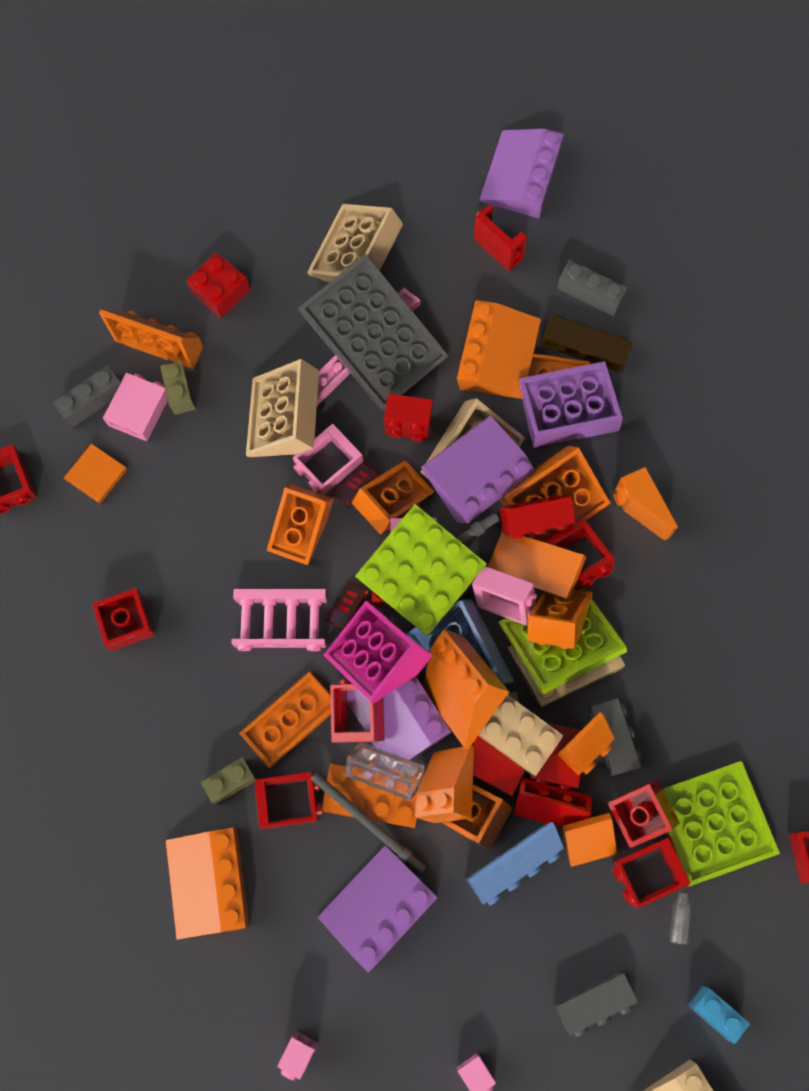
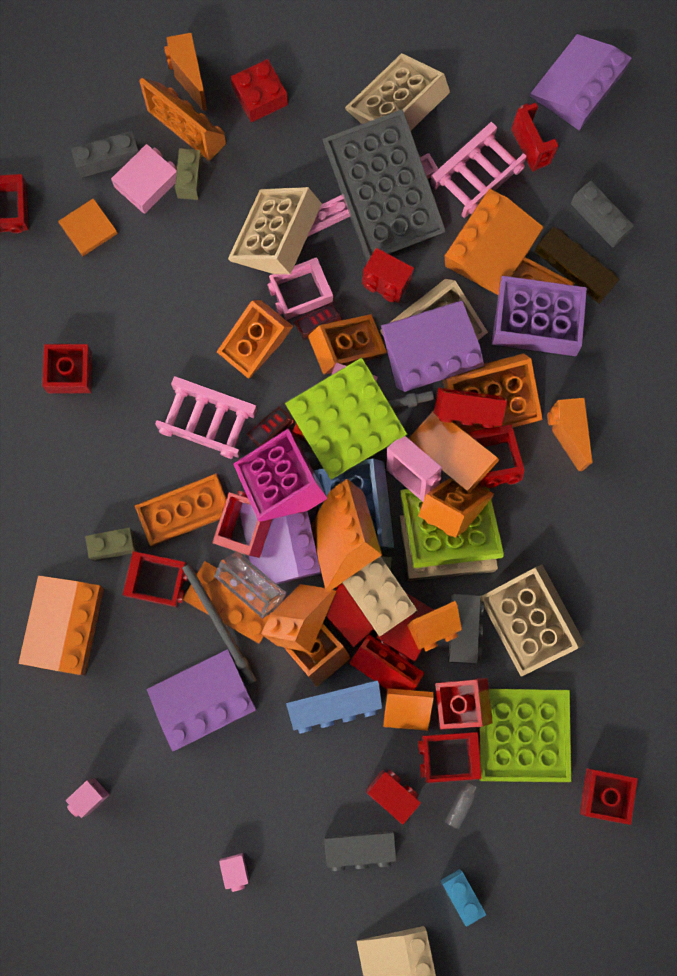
camera: 10 degrees right, 5 degrees up
(136, 283) = (183, 61): none -> orange slope
(445, 271) = (472, 150): none -> bright pink fence
(611, 936) = (392, 796): none -> red brick
(677, 705) = (532, 620): none -> tan slope

